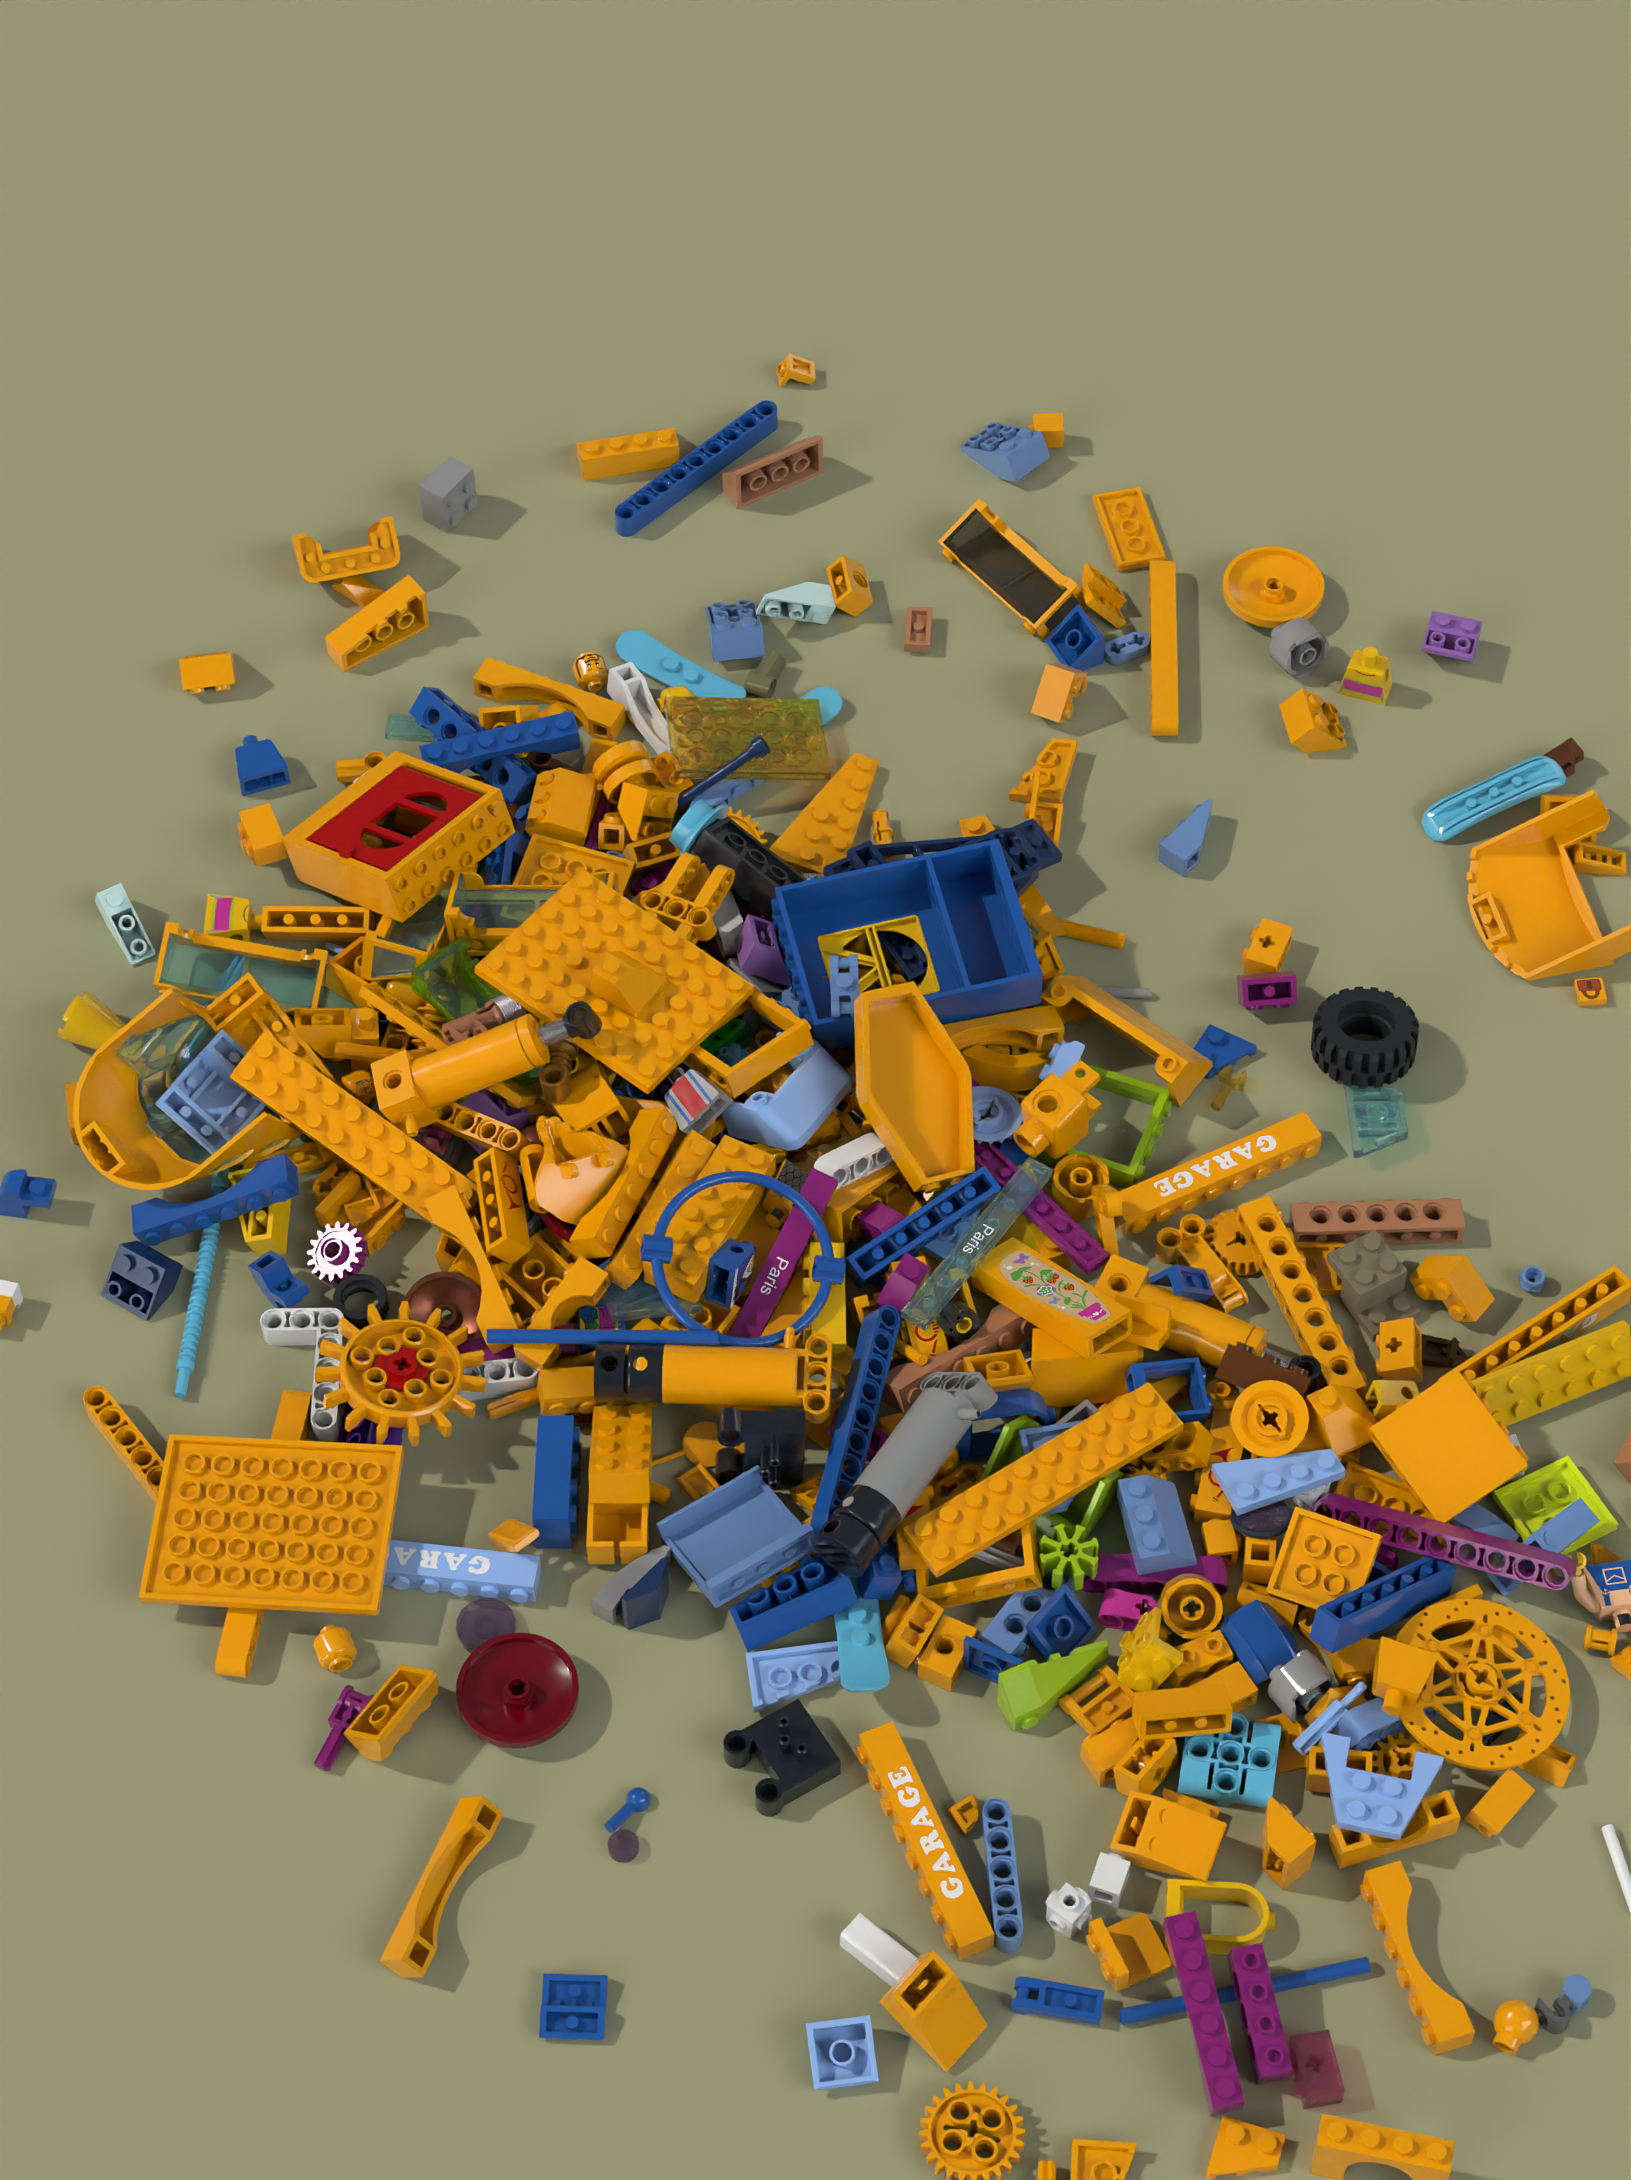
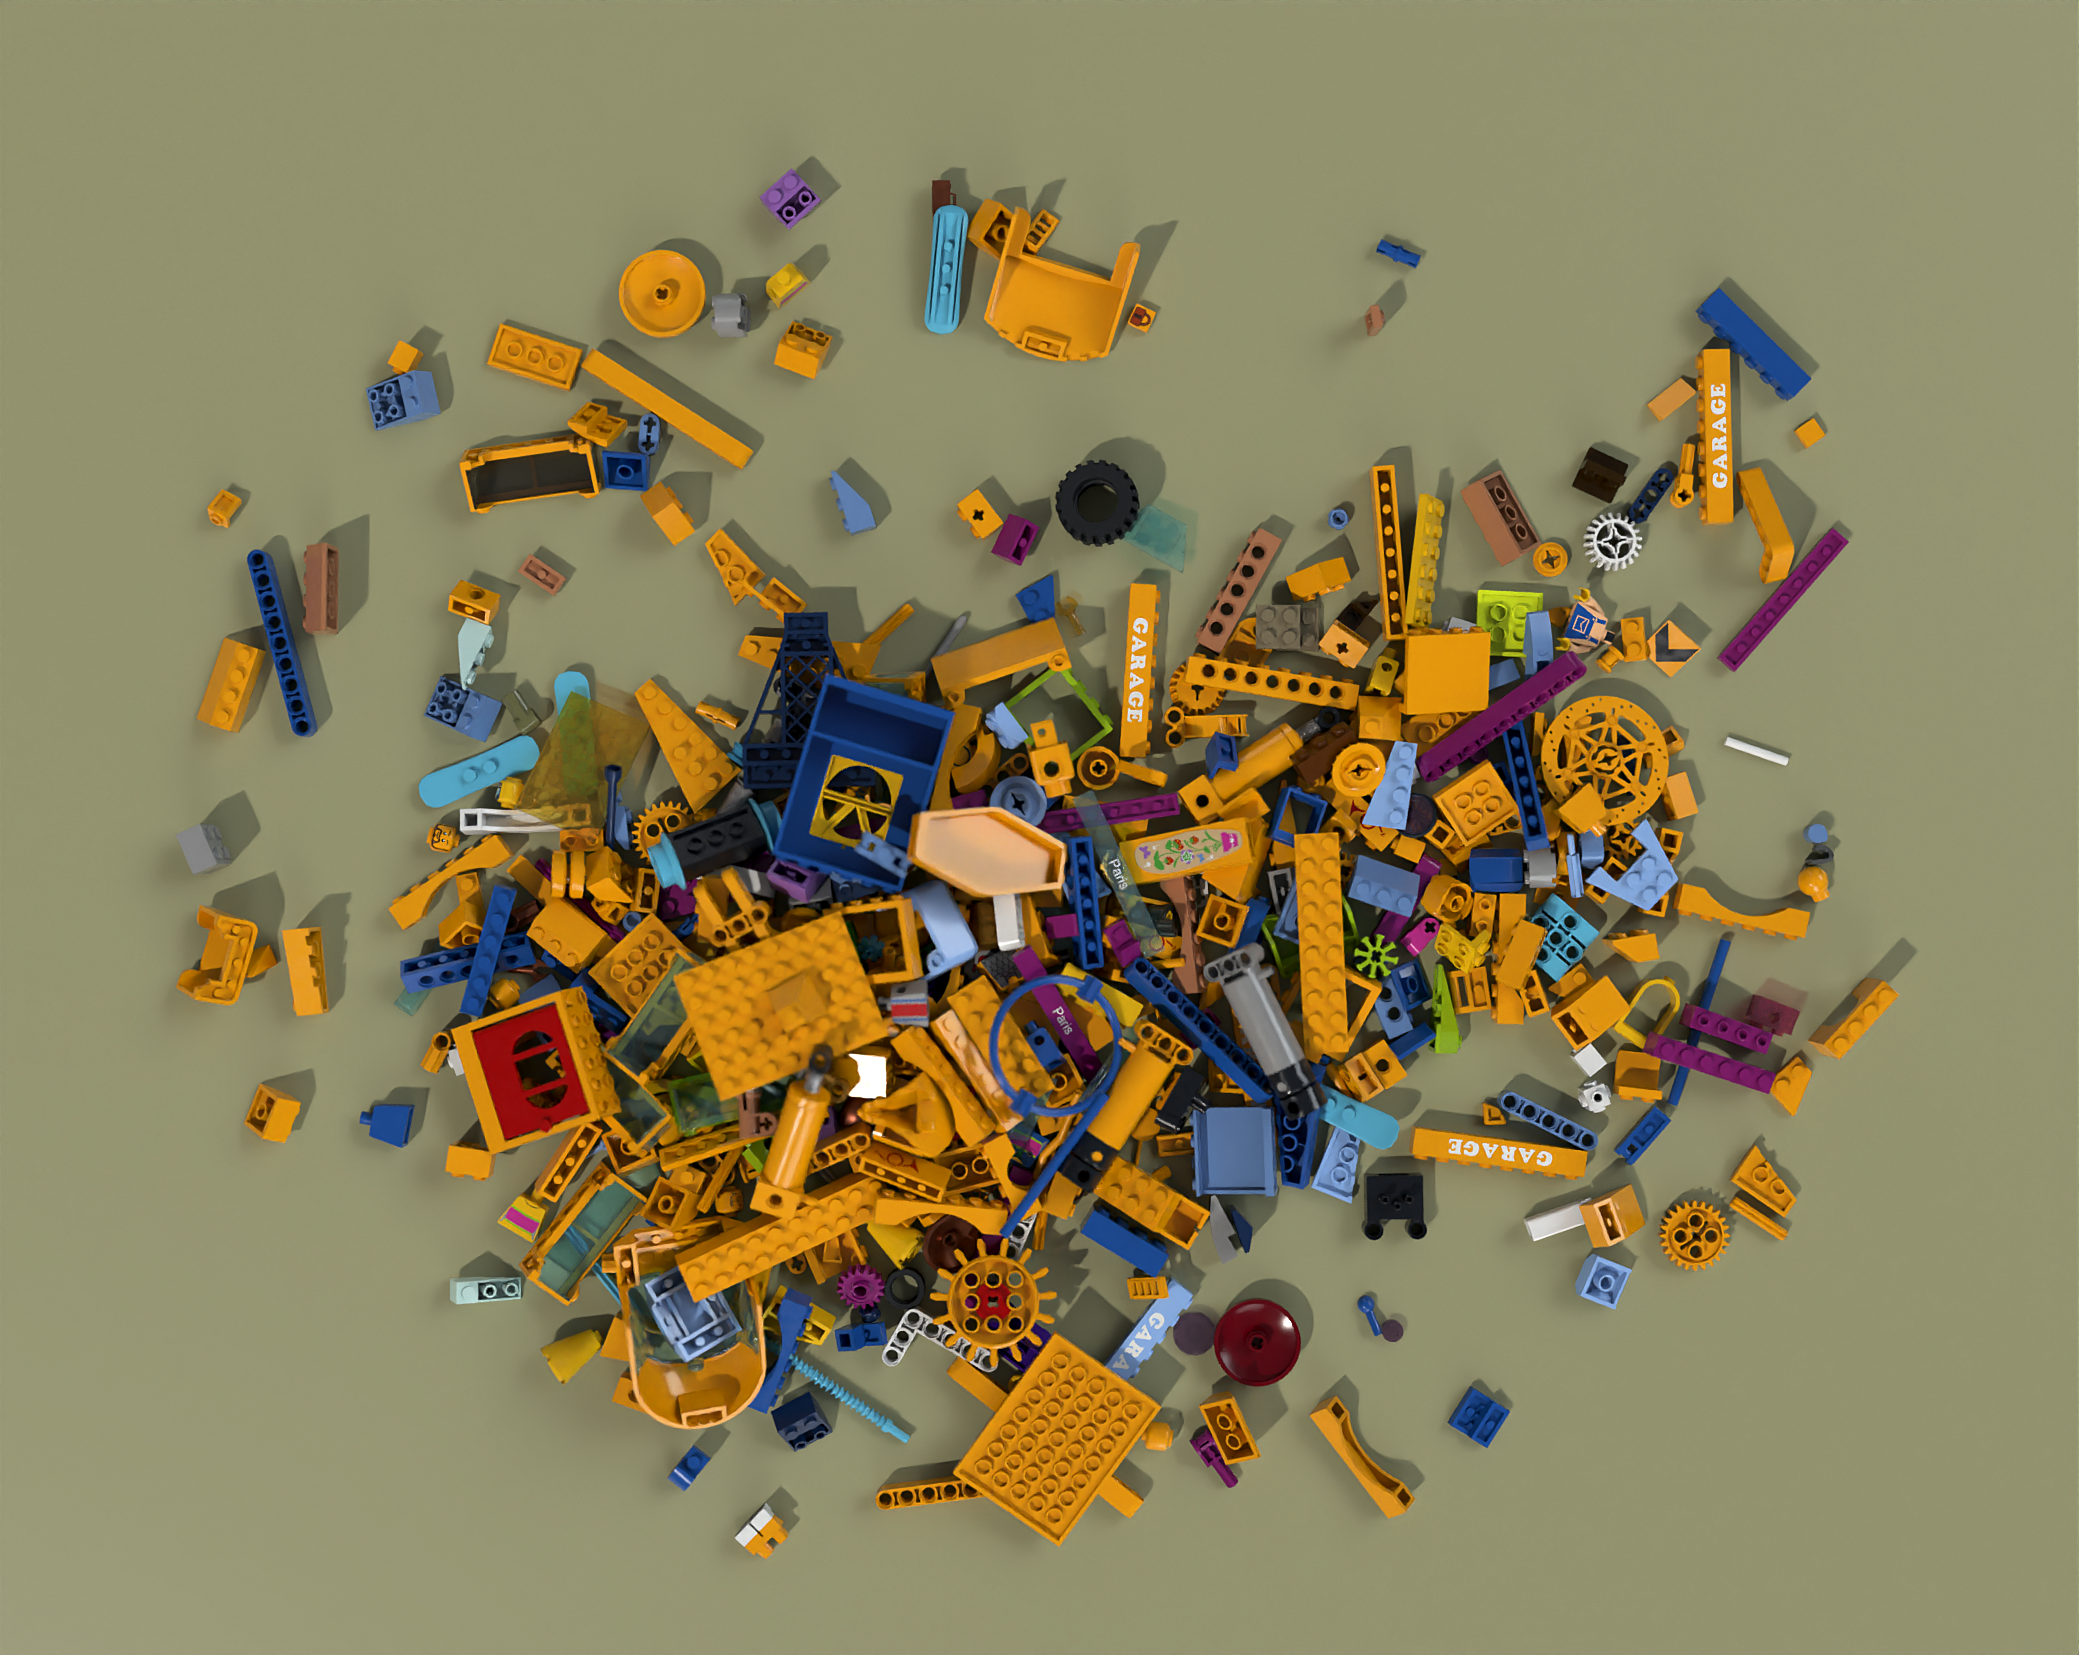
camera: 55 degrees left, 35 degrees up
(312, 1281) = (870, 1313): none -> dark blue bush
(411, 1260) = (897, 1241): none -> yellow cone

